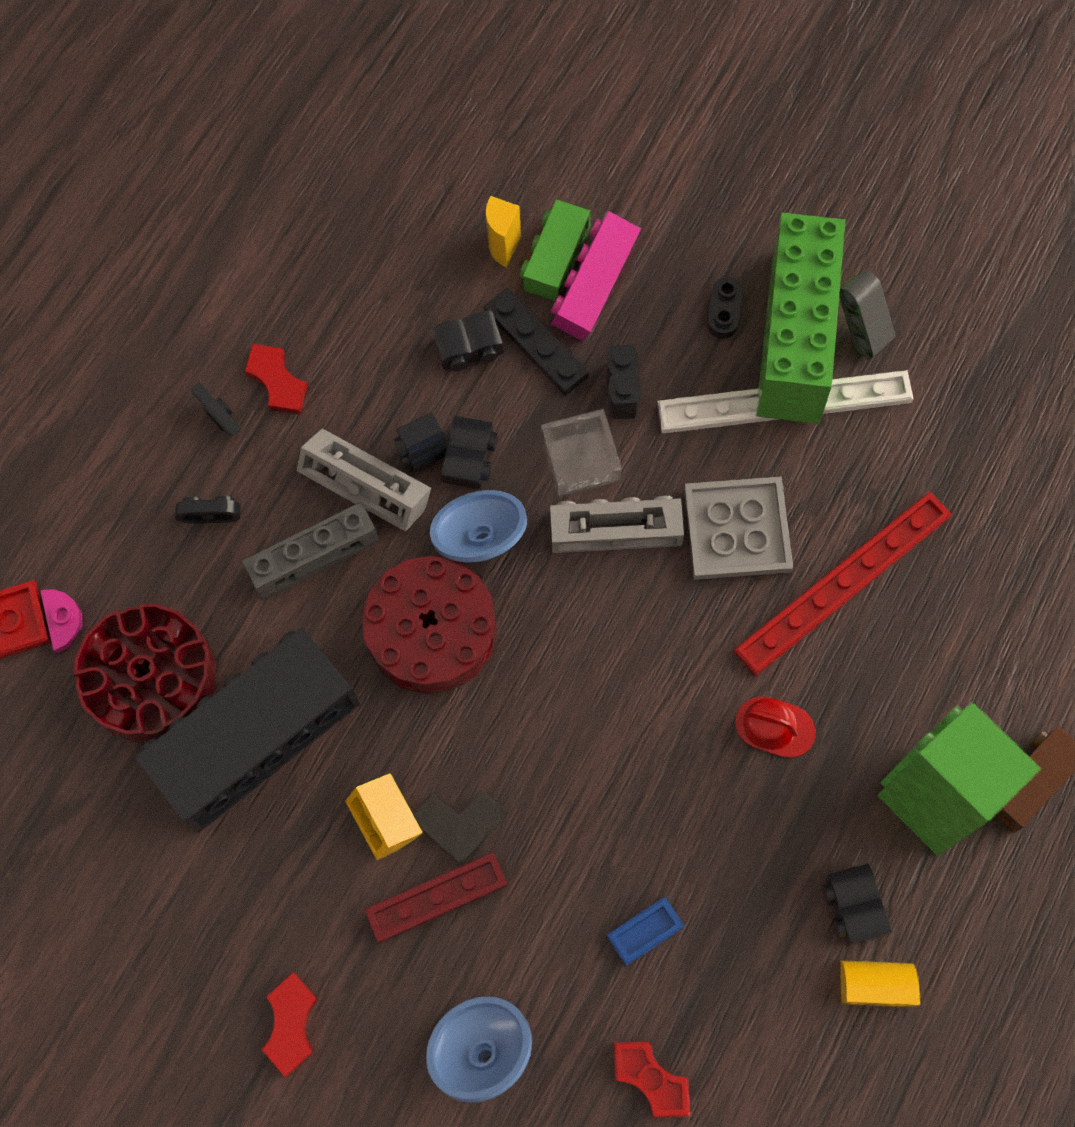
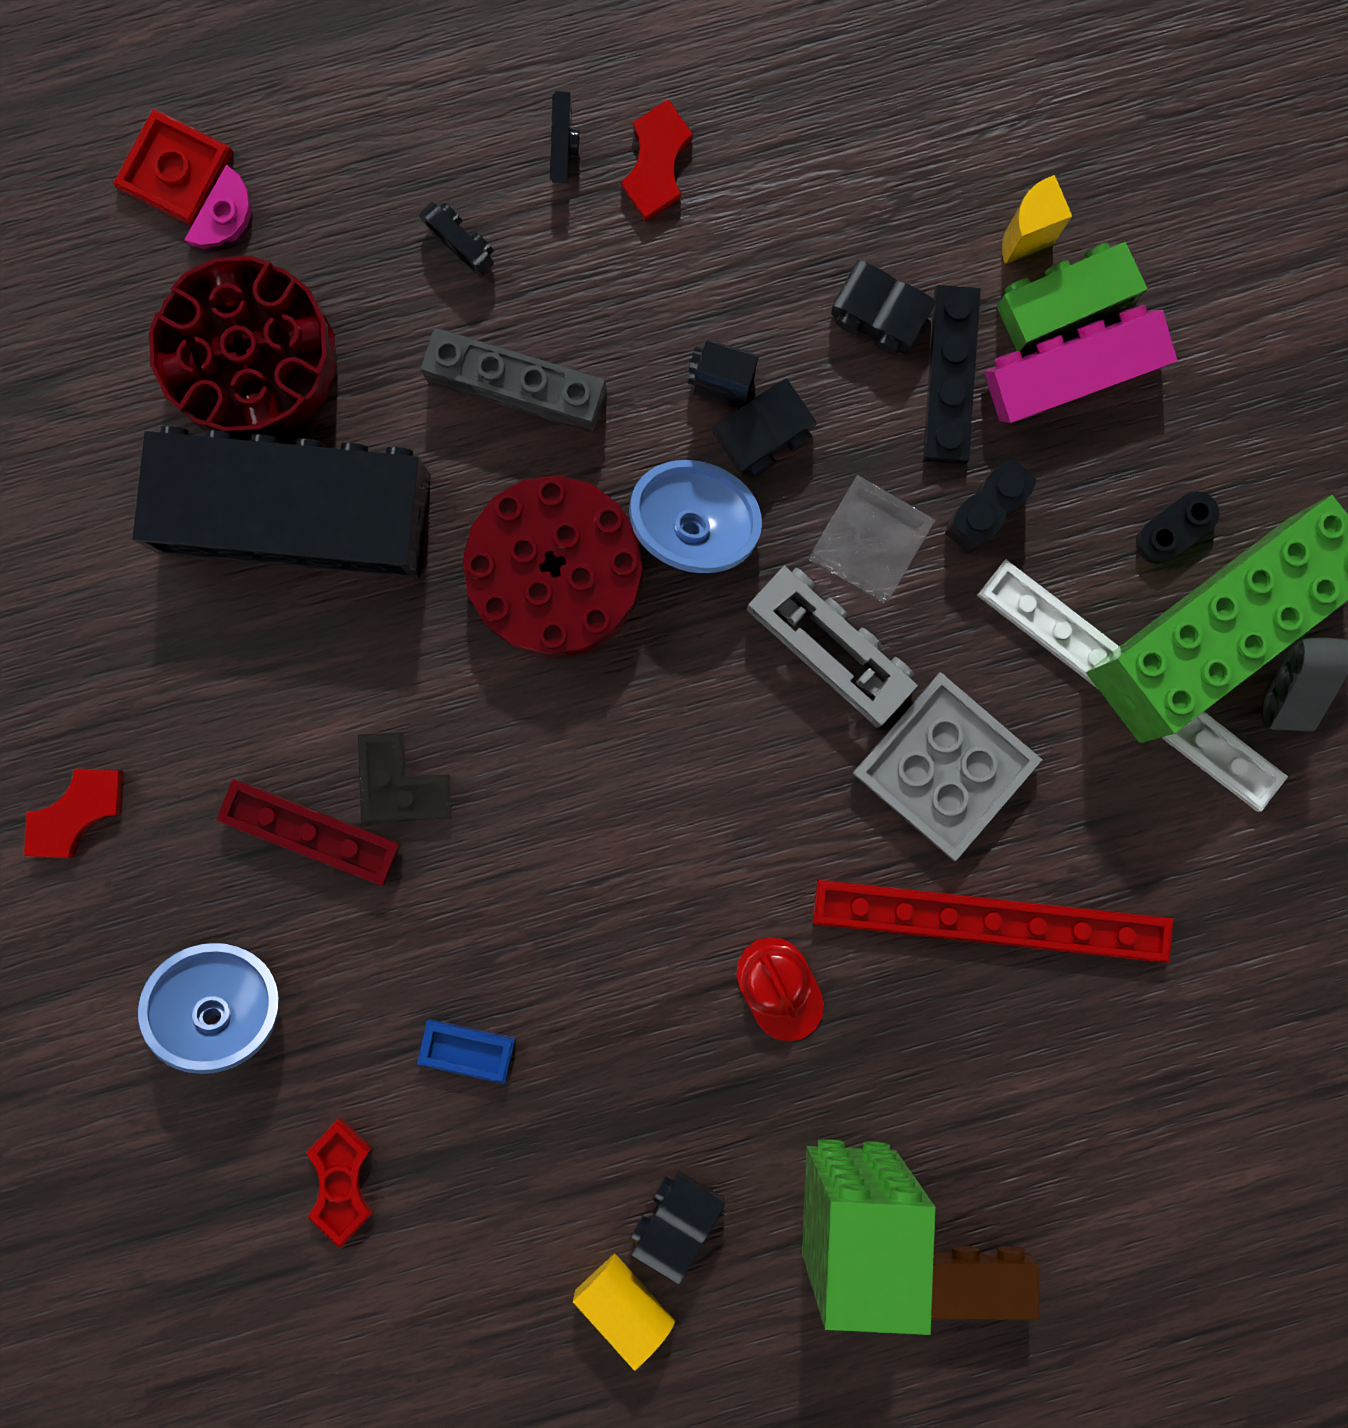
camera: 40 degrees right, 15 degrees up
(363, 479) = (634, 355): light grey brick -> none
(383, 816) = (334, 708): yellow brick -> none

